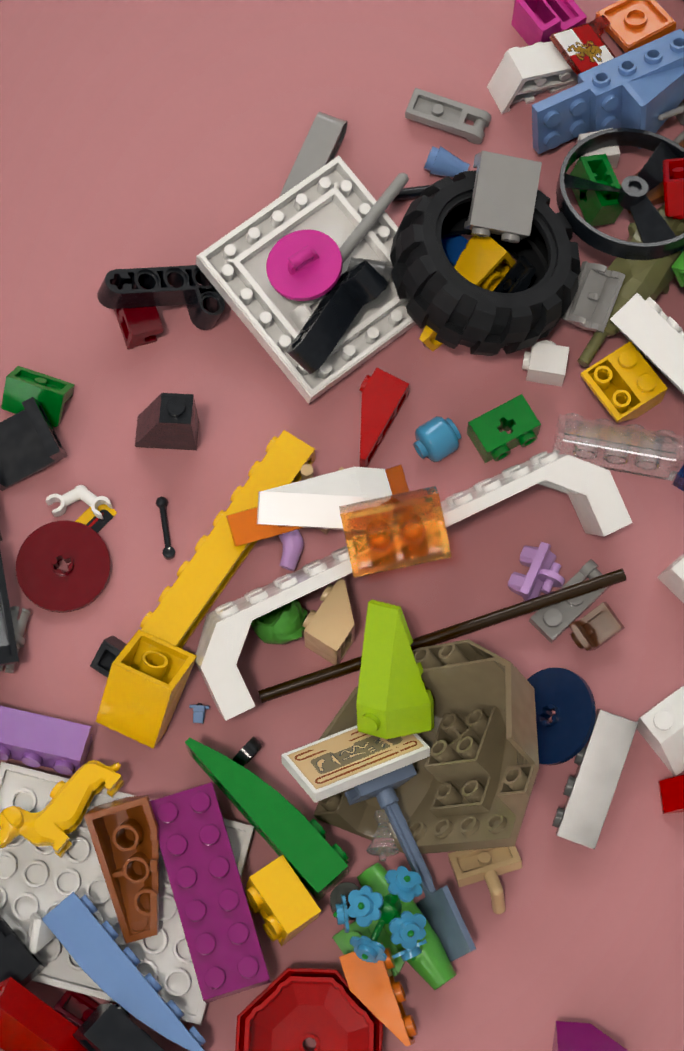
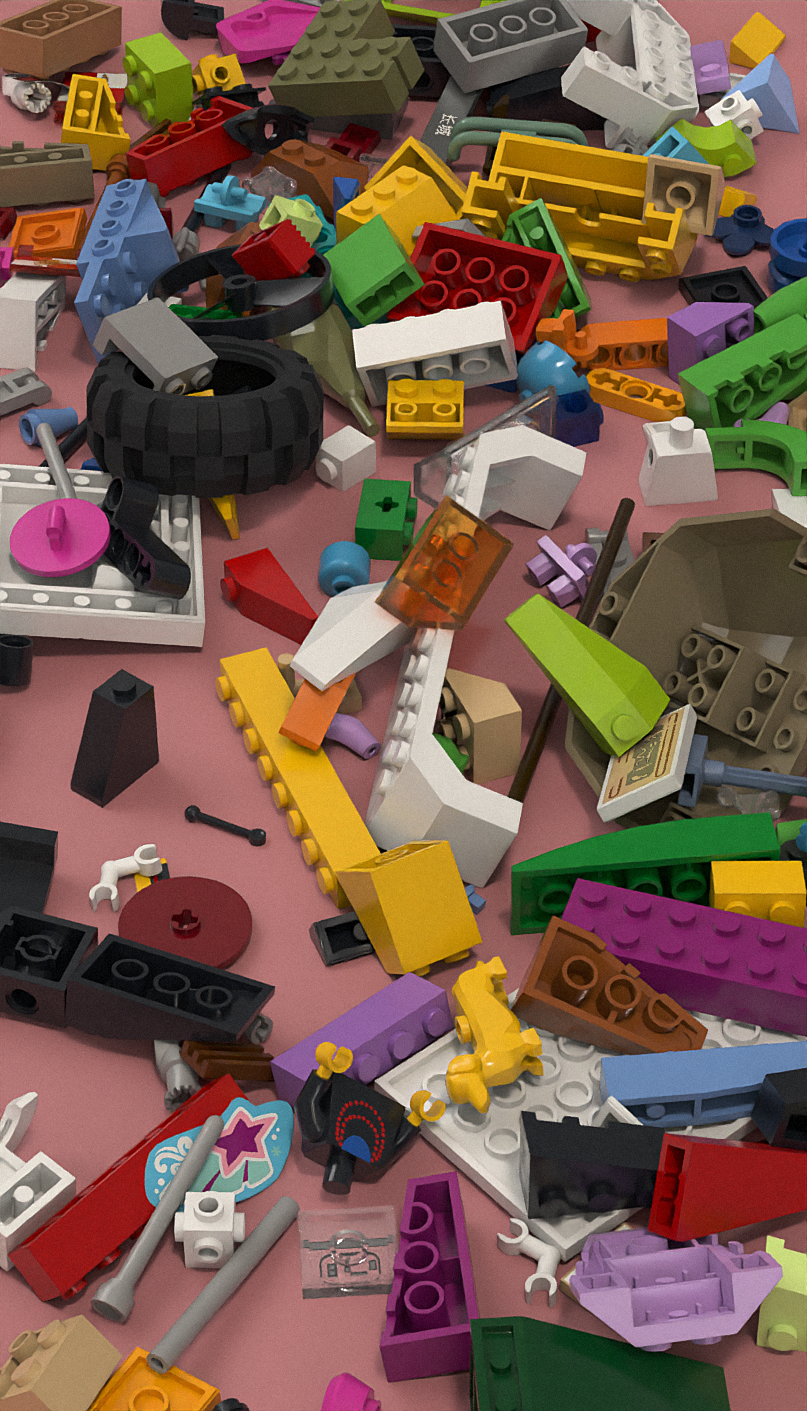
camera: 55 degrees left, 30 degrees down
(594, 297) = (336, 381): light grey hinge -> none

